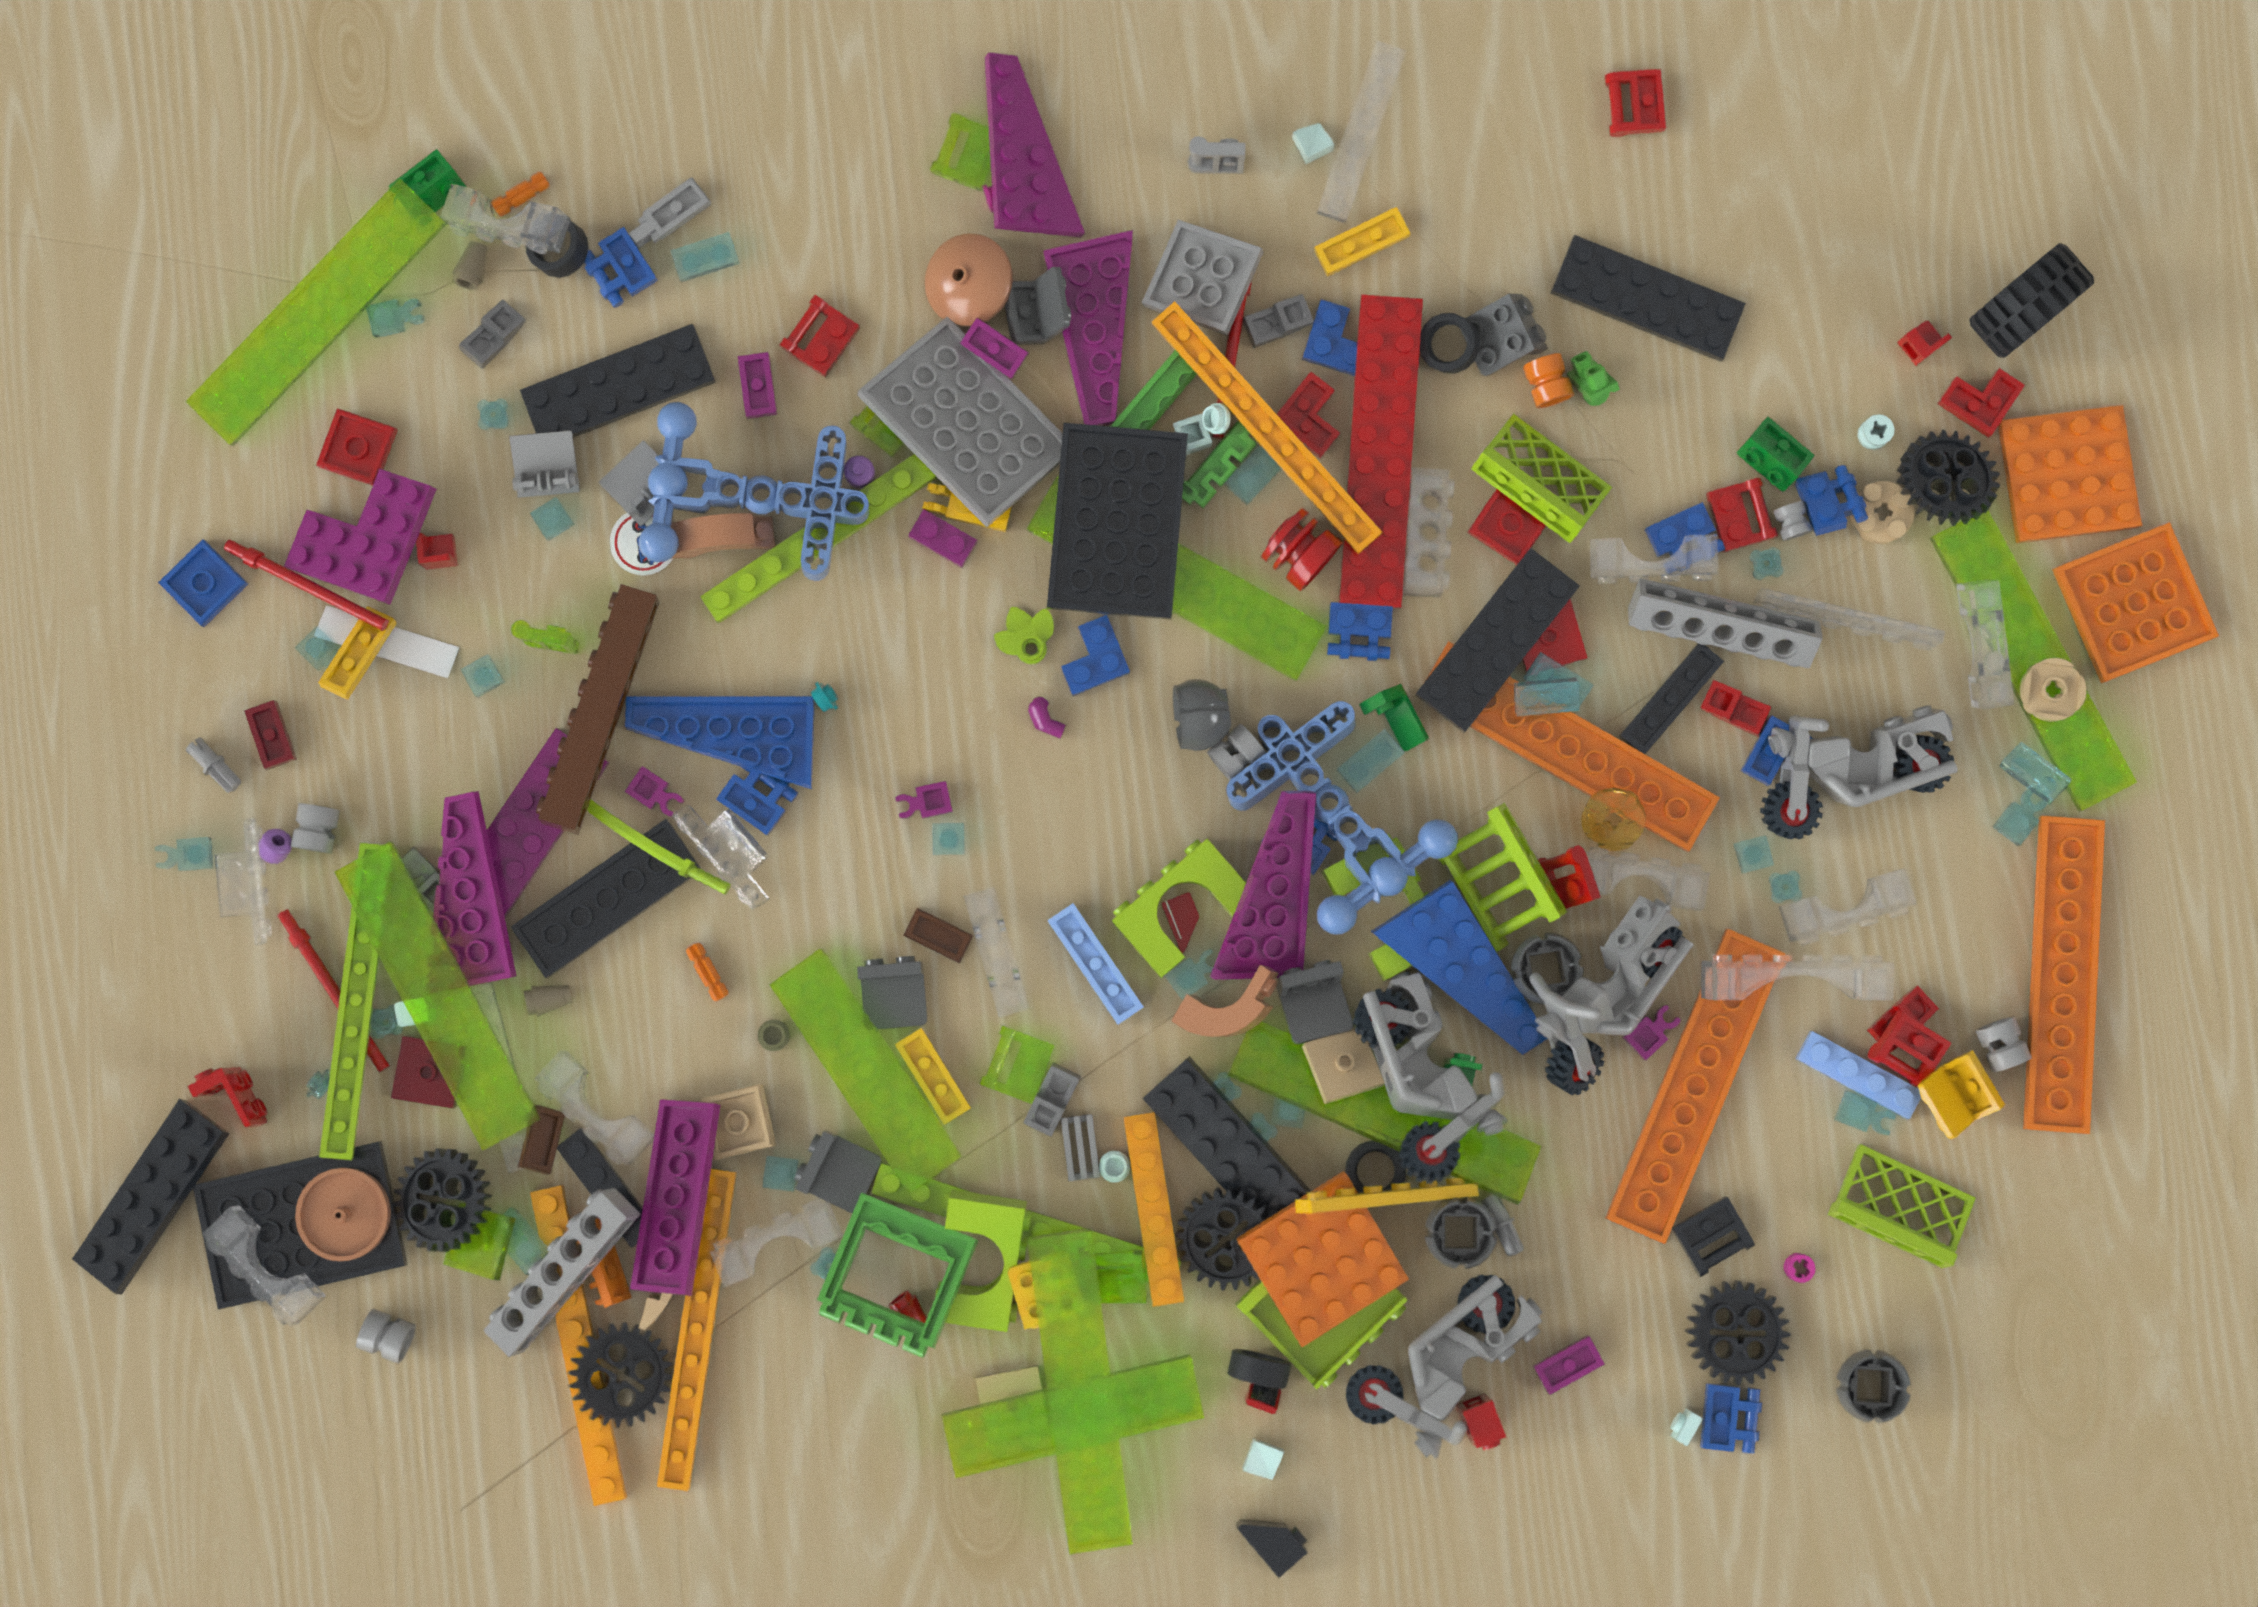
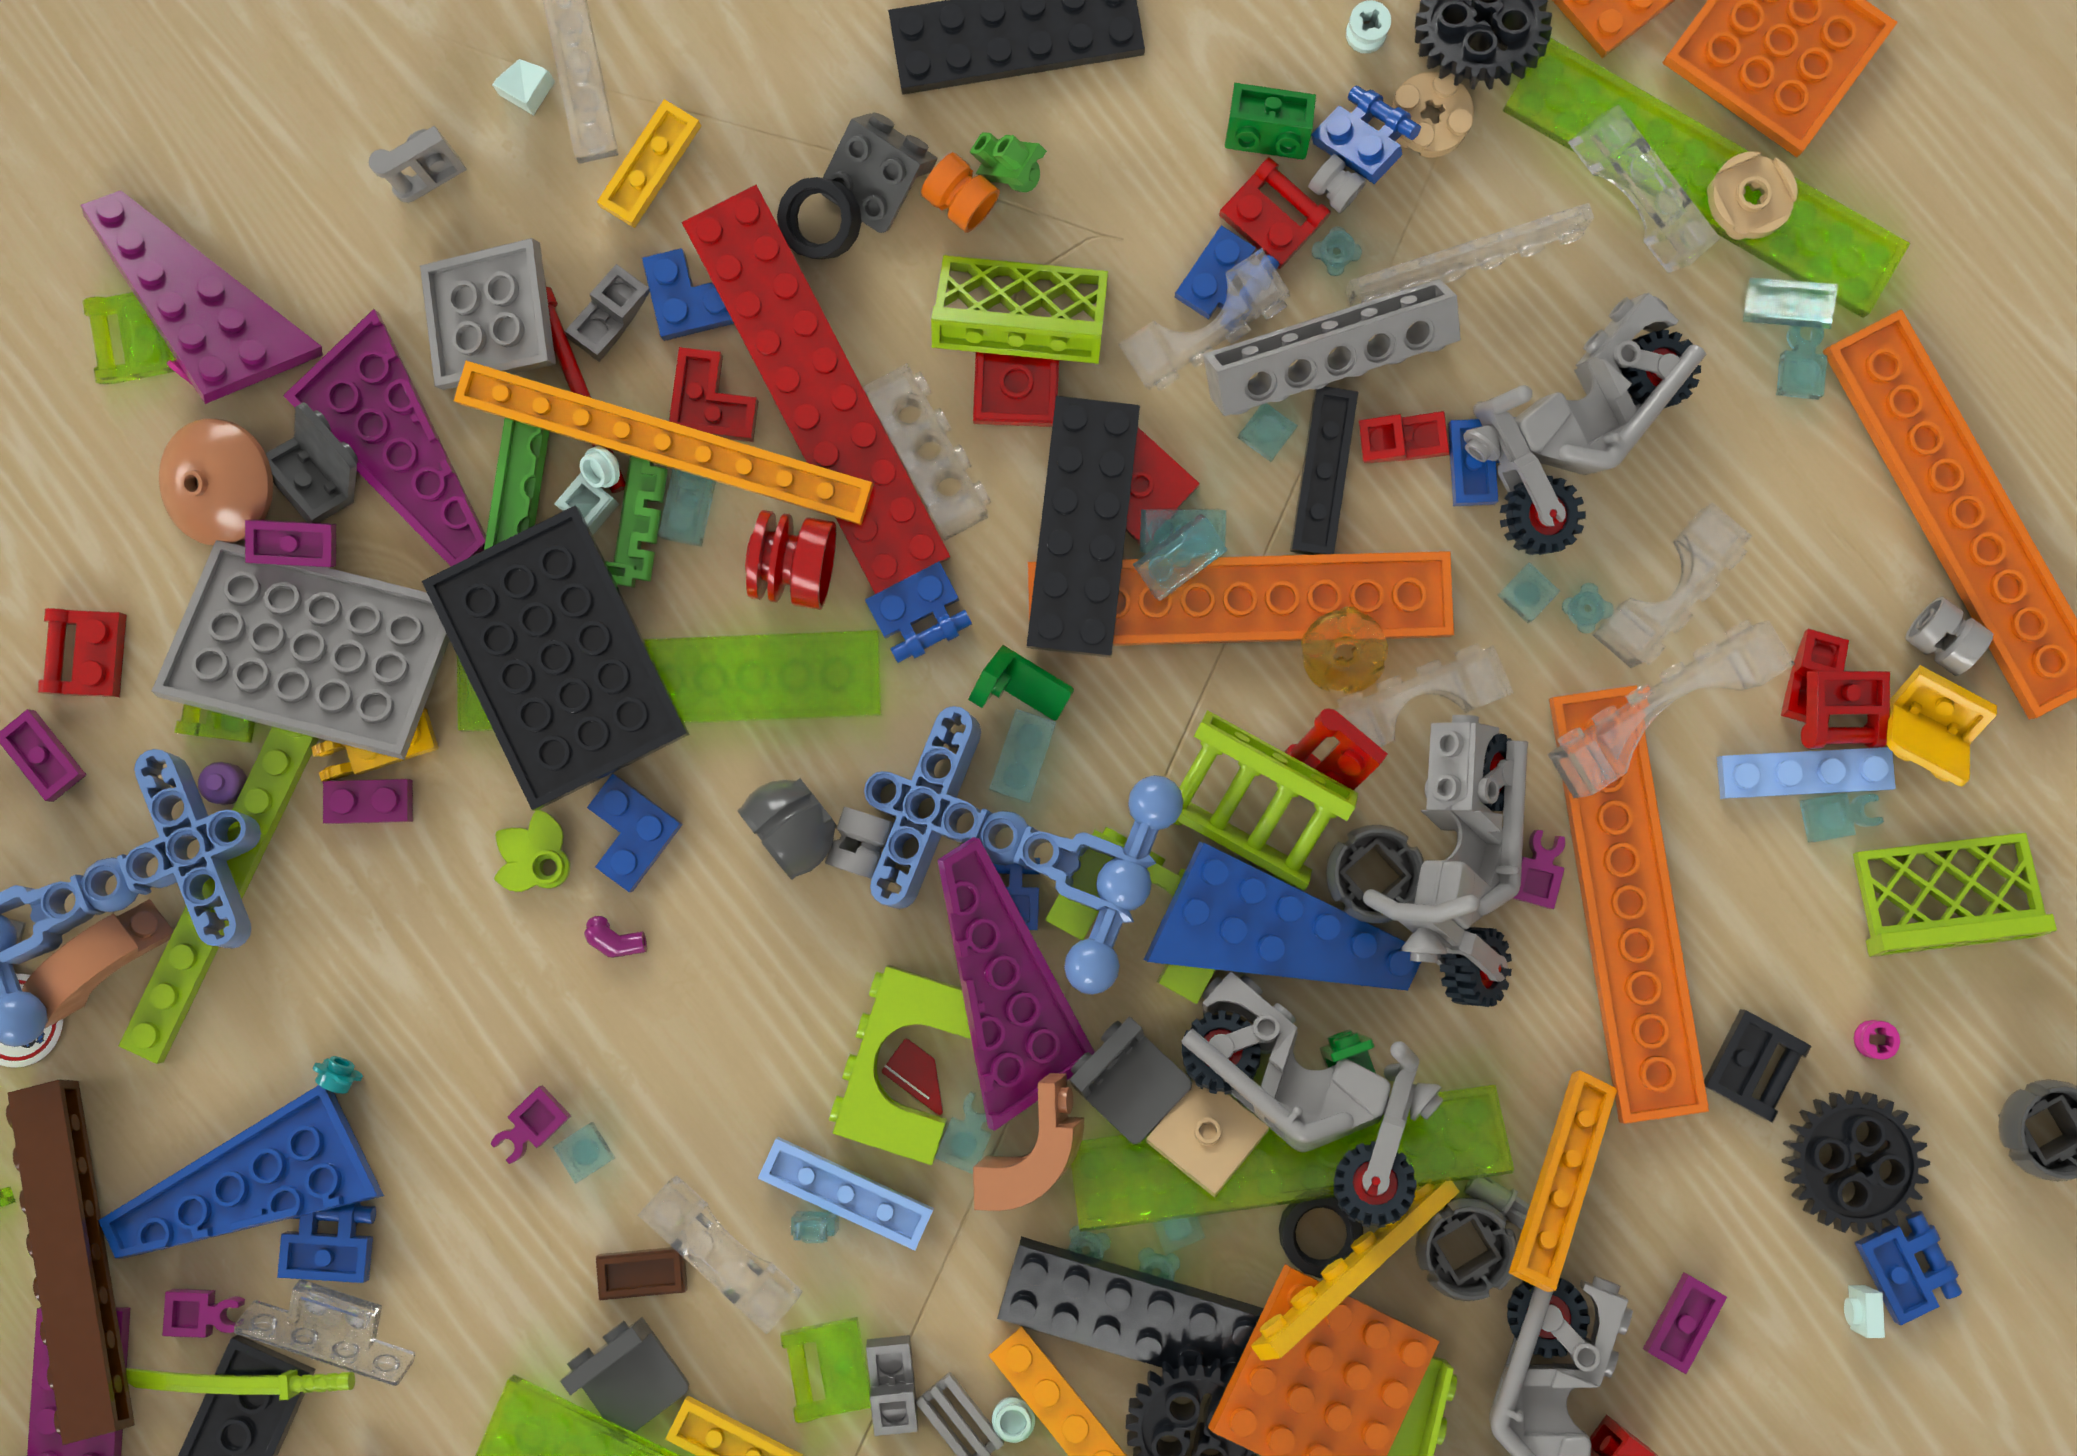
camera: 25 degrees left, 0 degrees up
(1064, 972) = (814, 1226): none -> clear light blue plate
(1547, 1227) = (1563, 1181): none -> light orange plate
(1651, 651) = (1267, 431): none -> clear light blue plate

